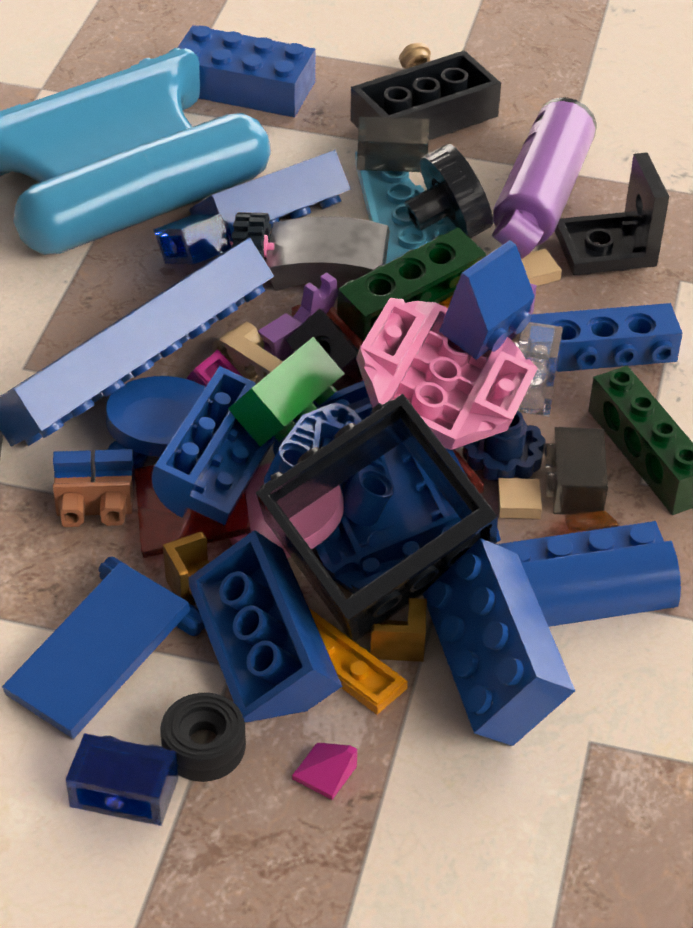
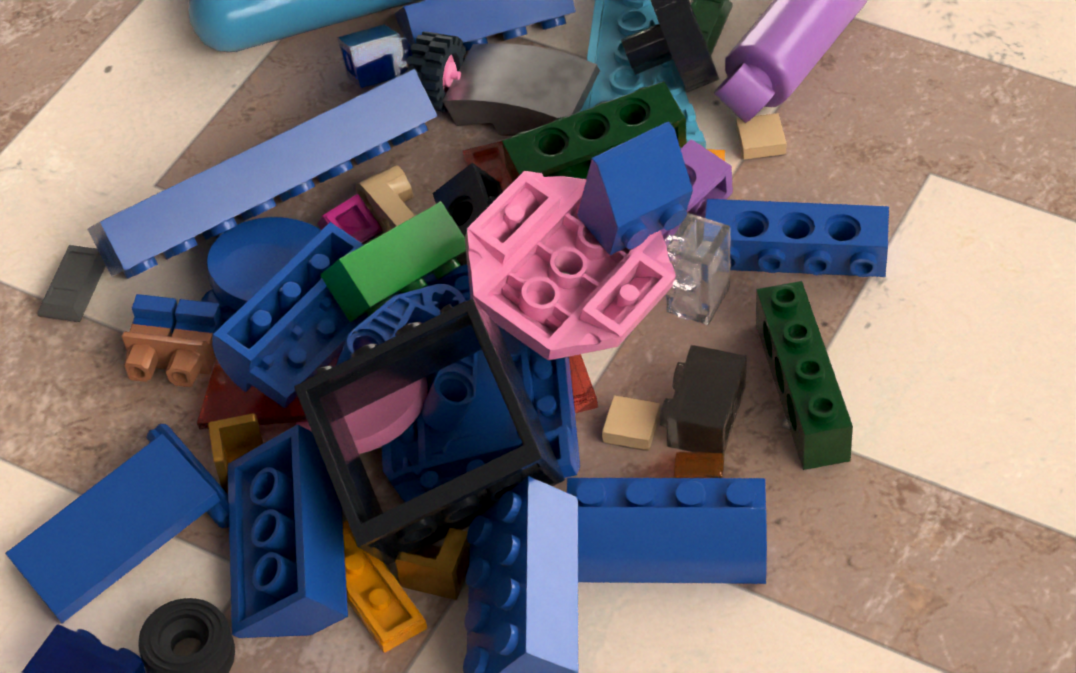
camera: 20 degrees right, 5 degrees up
(277, 332) = (480, 152): medium lavender piece -> none
(509, 453) = (639, 364): dark blue plant -> none
(625, 238) = (877, 104): black bracket -> none

